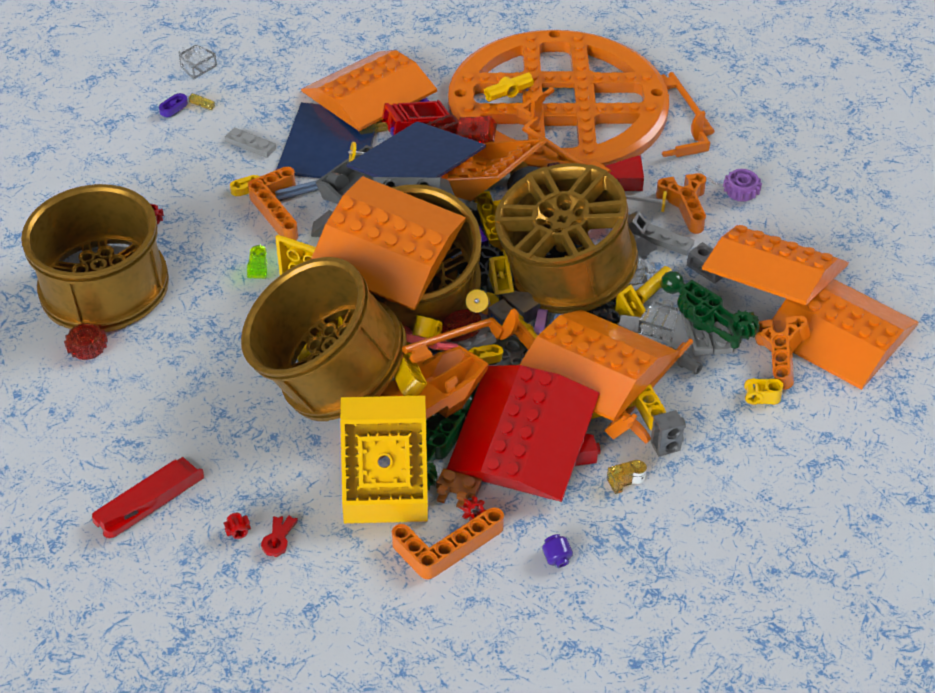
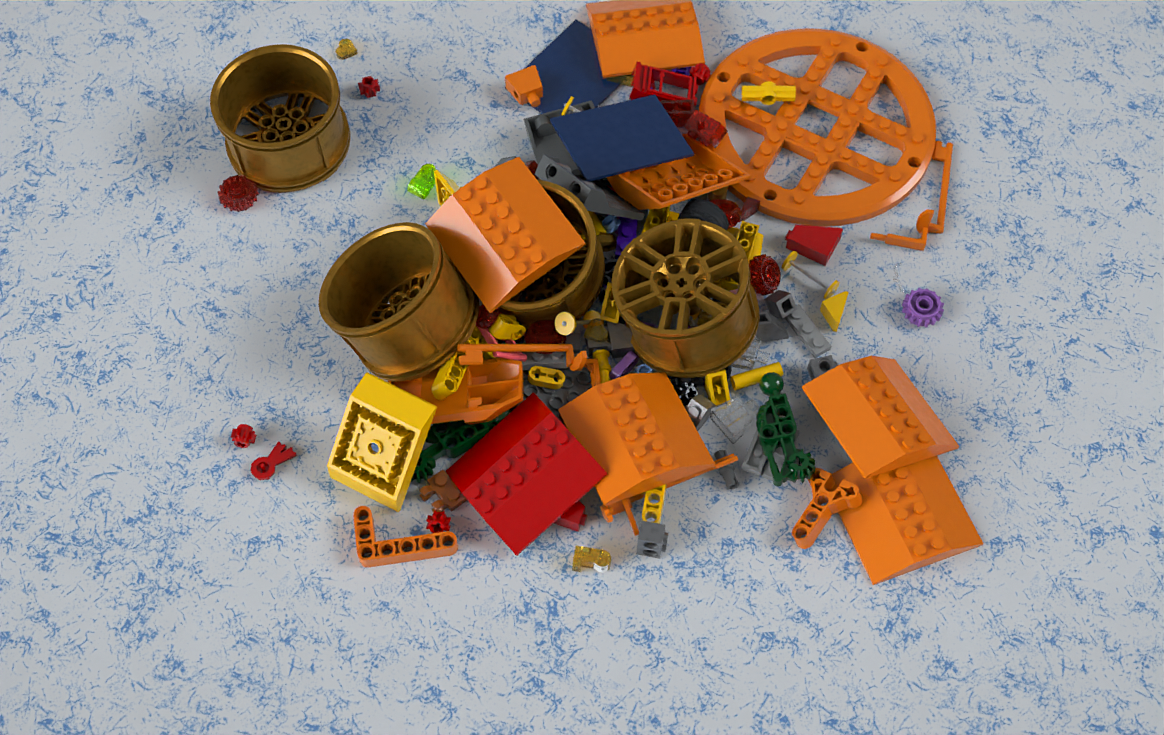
camera: 30 degrees right, 15 degrees up
(146, 496) = (195, 369): red piece -> none
(240, 186) = (469, 91): yellow beam -> none
(250, 142) = (502, 44): light grey plate -> none
(263, 197) = (474, 104): orange beam -> none
(296, 190) = (510, 117): sand blue axle -> none
(298, 158) = (525, 86): none -> orange torso
(409, 325) = (486, 321): none -> clear red gear
(439, 95) = (702, 73): none -> red gear
(501, 304) = (596, 331): none -> clear yellow tile
(533, 118) = (768, 135): orange piece -> none
(557, 550) = (480, 600): dark purple head -> none
(677, 214) = (833, 308): none -> yellow slope
(686, 199) = (874, 288): orange beam -> none
(765, 391) = (771, 537): yellow piece -> none

